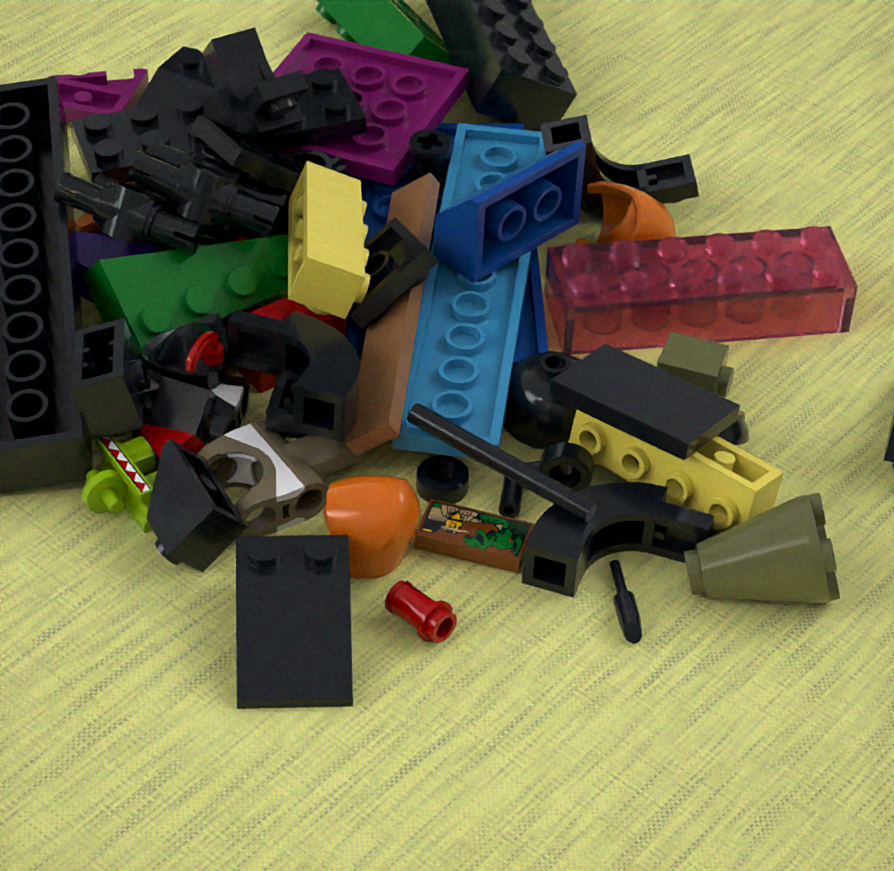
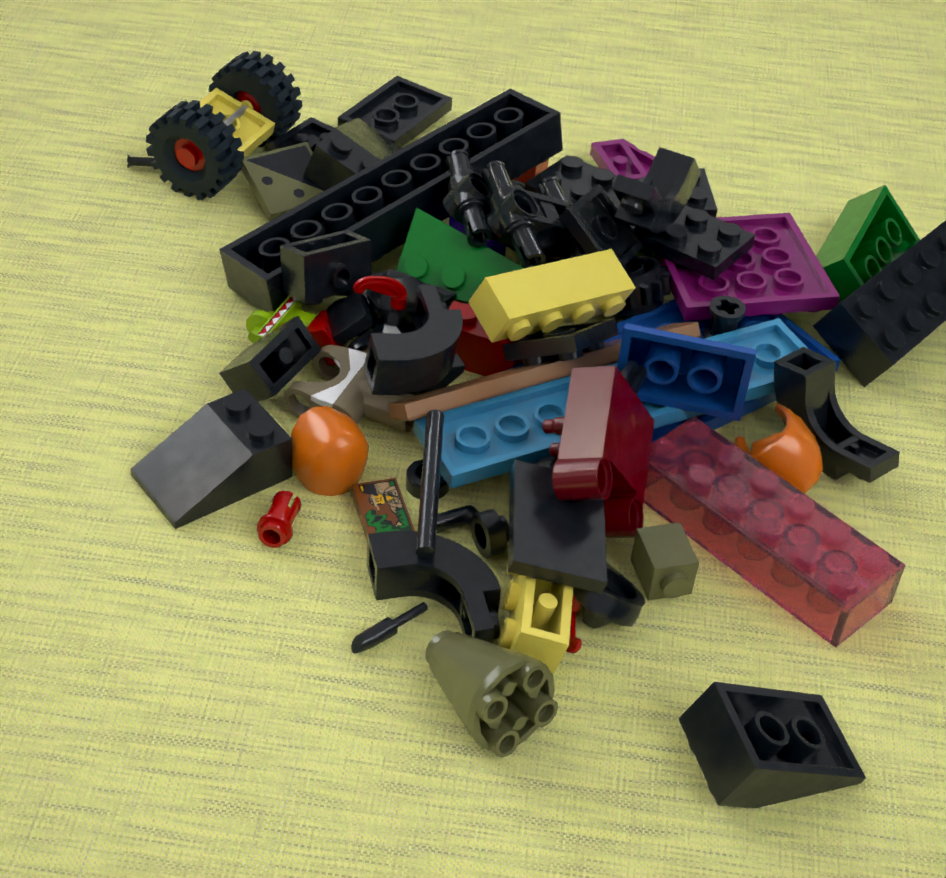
camera: 55 degrees right, 0 degrees up
(574, 304) = (604, 444): none -> dark red piece

